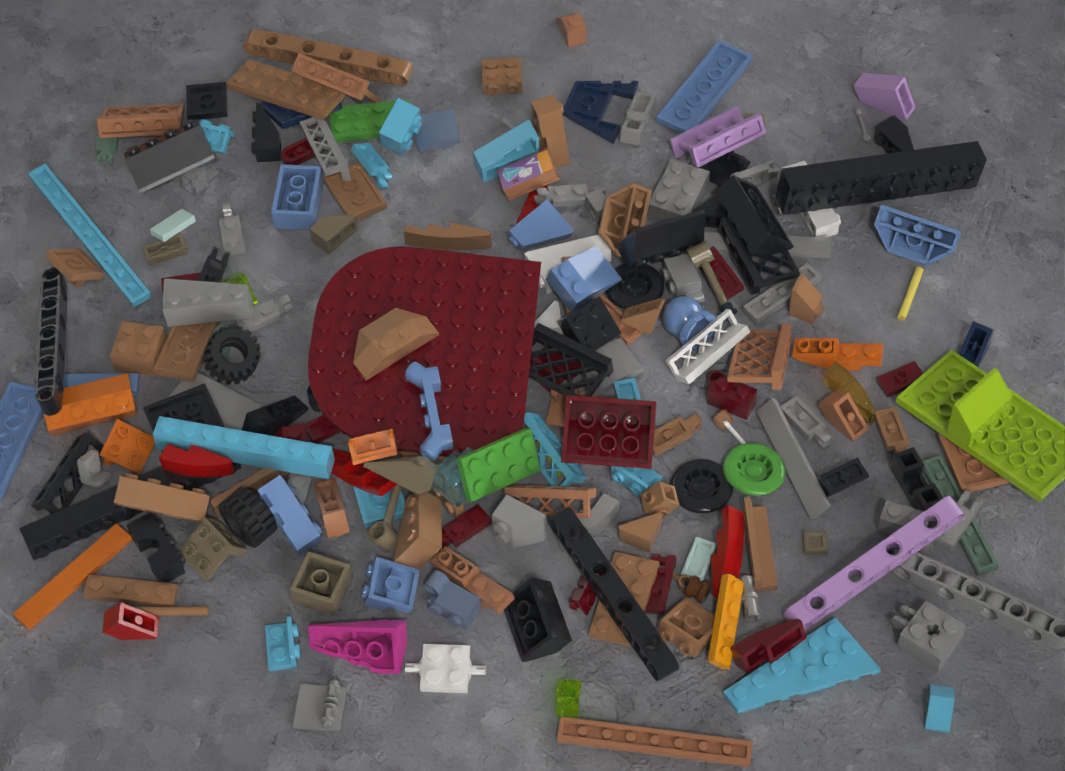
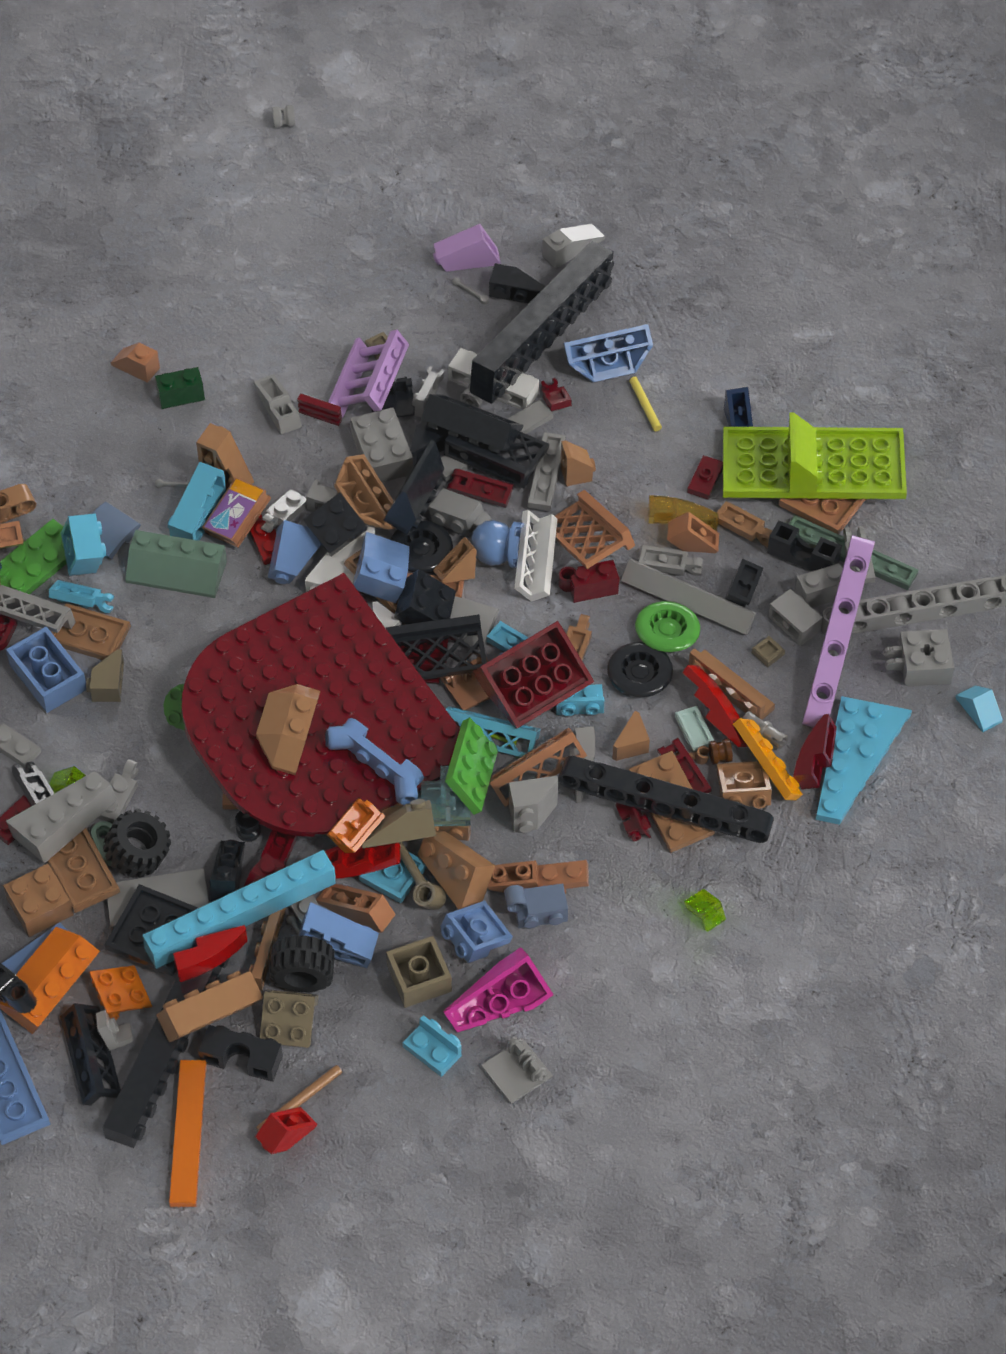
camera: 45 degrees left, 0 degrees up
(130, 591) = (253, 1105): medium nougat plate -> none
(445, 668) = (585, 962): white plate -> none
(452, 238) = (212, 618): medium nougat slope -> none
(455, 184) = (175, 563): none -> sand green slope
(465, 527) = (485, 835): dark red plate -> none
(502, 76) = (116, 444): medium nougat plate -> none
(537, 620) = (622, 869): black slope -> none
(579, 226) = (335, 524): none -> black plate
(580, 63) = (180, 387): none -> dark green brick
(590, 101) = (224, 411): dark blue wing -> none
(655, 741) = (803, 892): nougat plate -> none
(659, 498) = (621, 703): medium nougat brick -> none
(662, 140) = (319, 409): none -> dark red tile
(701, 257) = (457, 482): dark tan piece -> none
(704, 87) = (309, 341): medium blue plate -> none
(723, 421) = (605, 606): medium nougat hinge -> none
(826, 351) = (635, 492): orange slope -> none
(845, 242) = (555, 396): none -> dark red plate
(860, 530) = (795, 617): none -> light grey brick
(966, 130) = (568, 243): none -> light grey slope

